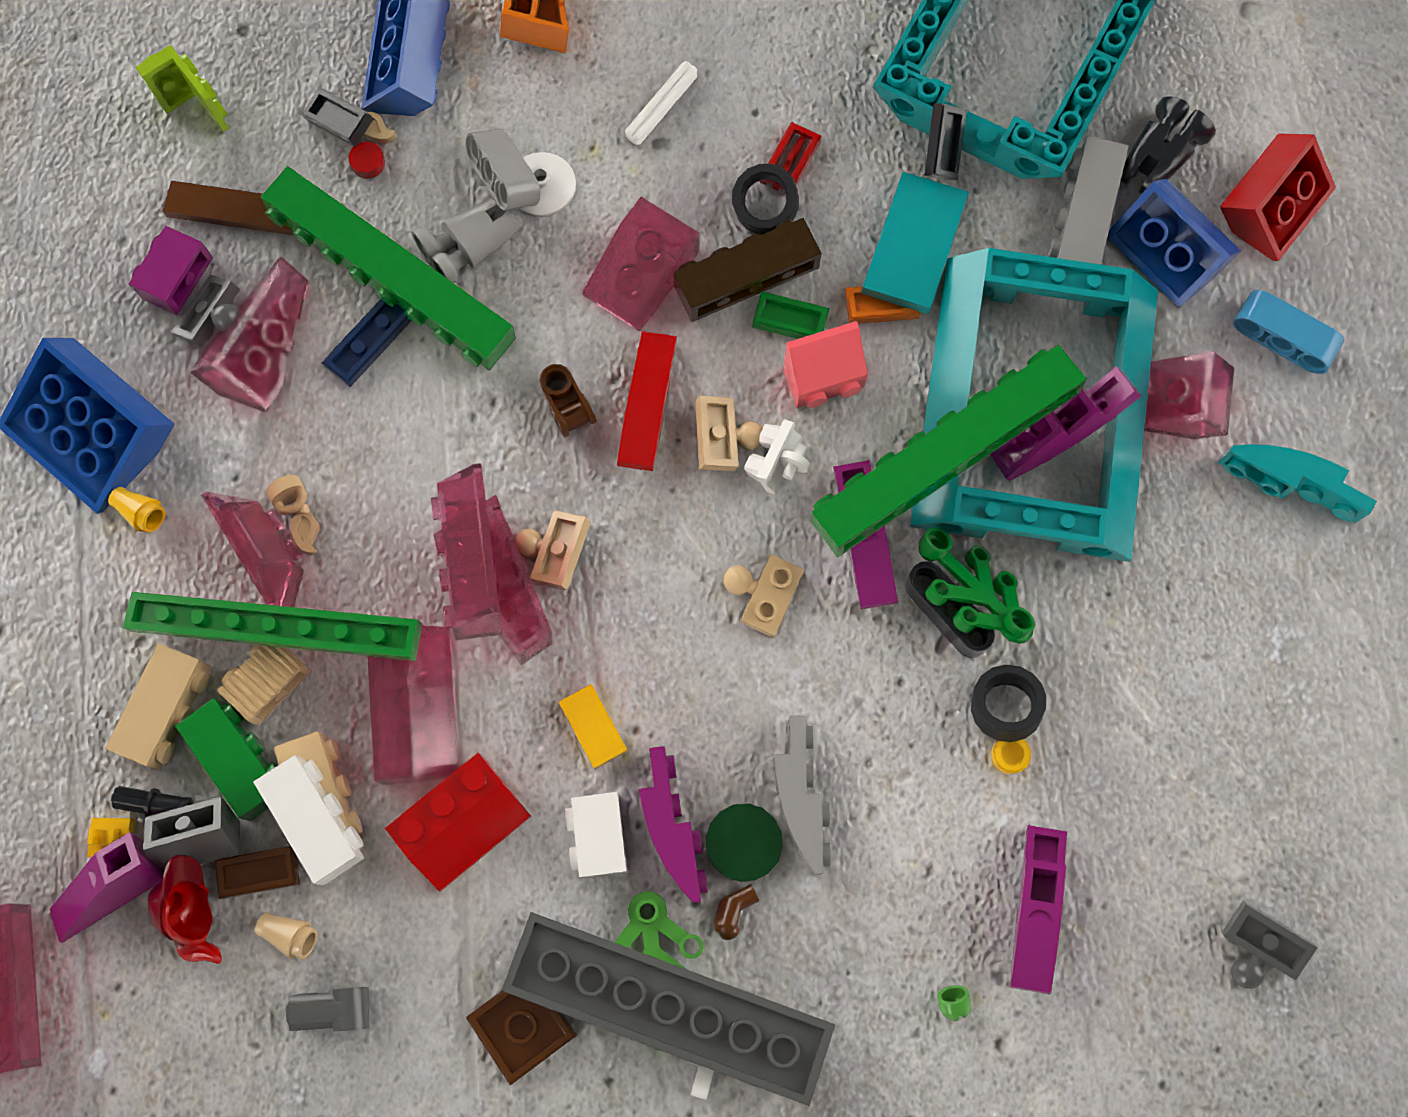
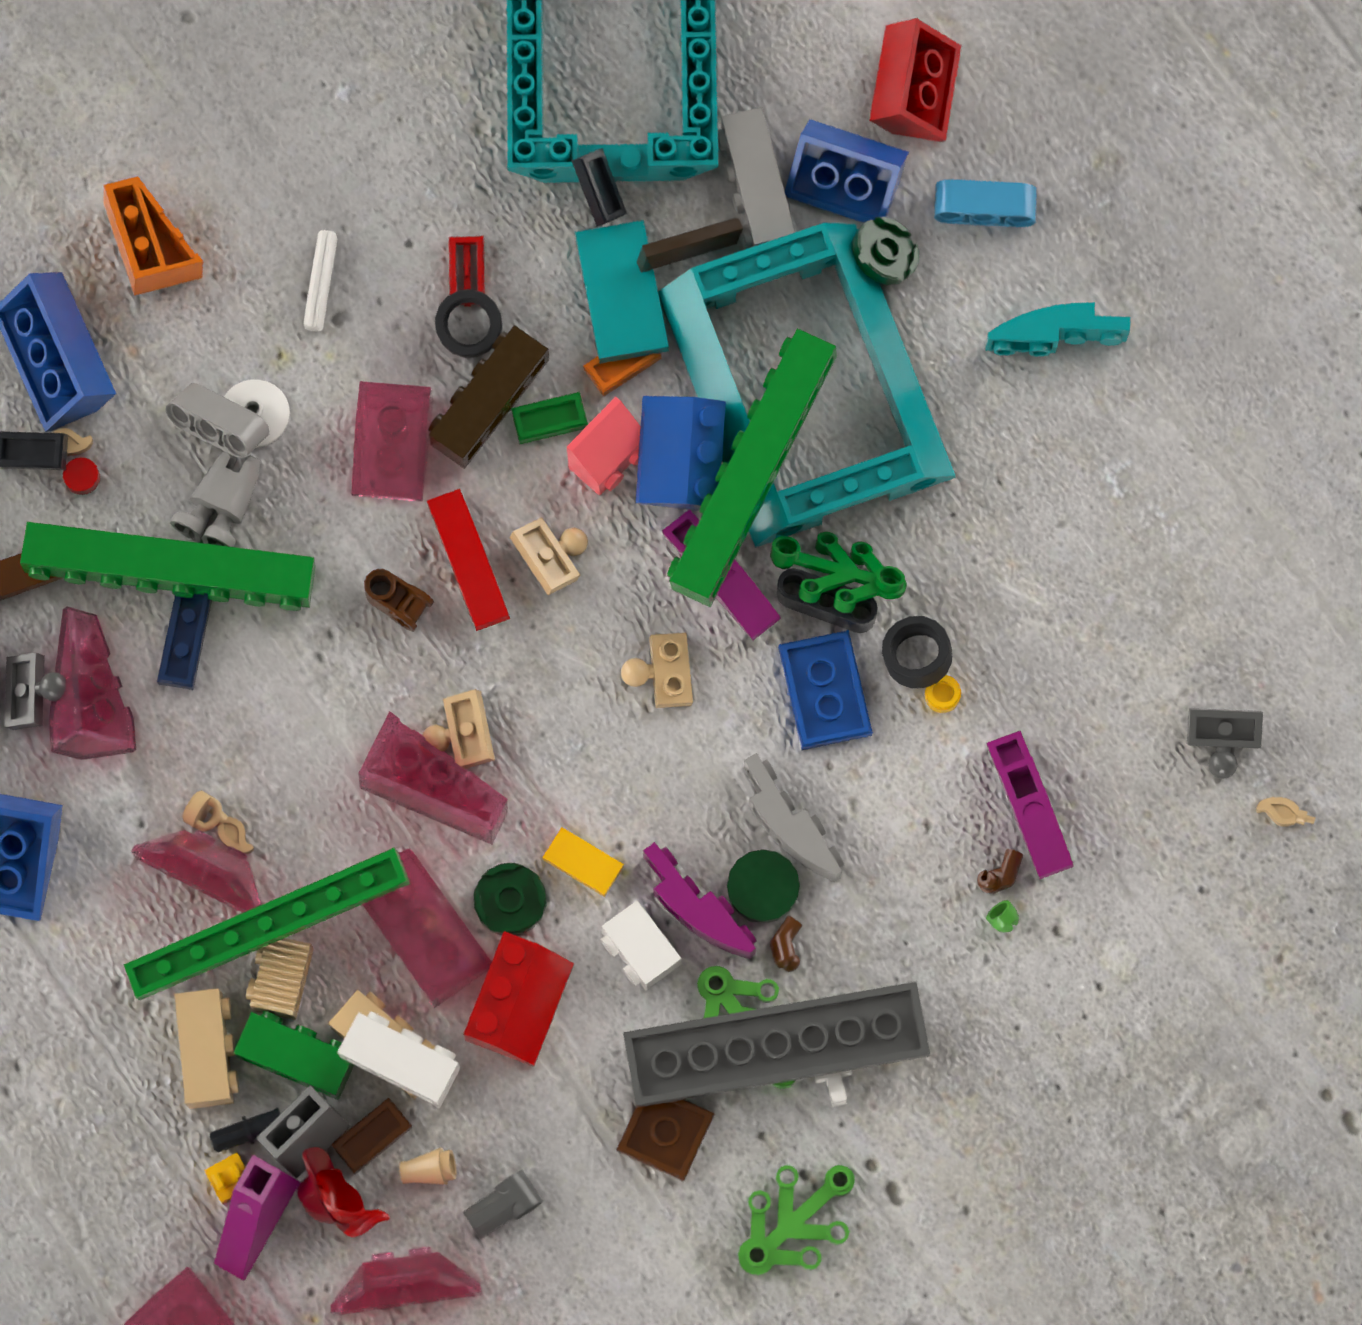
camera: 30 degrees left, 0 degrees up
(139, 510) = (76, 896): yellow cone -> none
(199, 1032) = (403, 1282): none -> clear pink wedge
(467, 554) = (404, 771): clear pink slope -> none
(508, 724) = (510, 899): none -> dark green tile
(782, 459) = (615, 547): white hips -> none
(888, 401) = (679, 450): none -> blue slope
(902, 691) = (825, 690): none -> blue tile
(975, 962) = (1001, 877): none -> reddish brown arm
(998, 230) = (689, 244): none -> dark brown tile
(1066, 425) = (841, 389): magenta slope -> none
(1157, 155) = (791, 97): black piece -> none
(1173, 325) = (885, 251): none -> tile
(1190, 396) = (931, 306): clear pink slope -> none
(1285, 1055) = (1284, 811): none -> tan piece

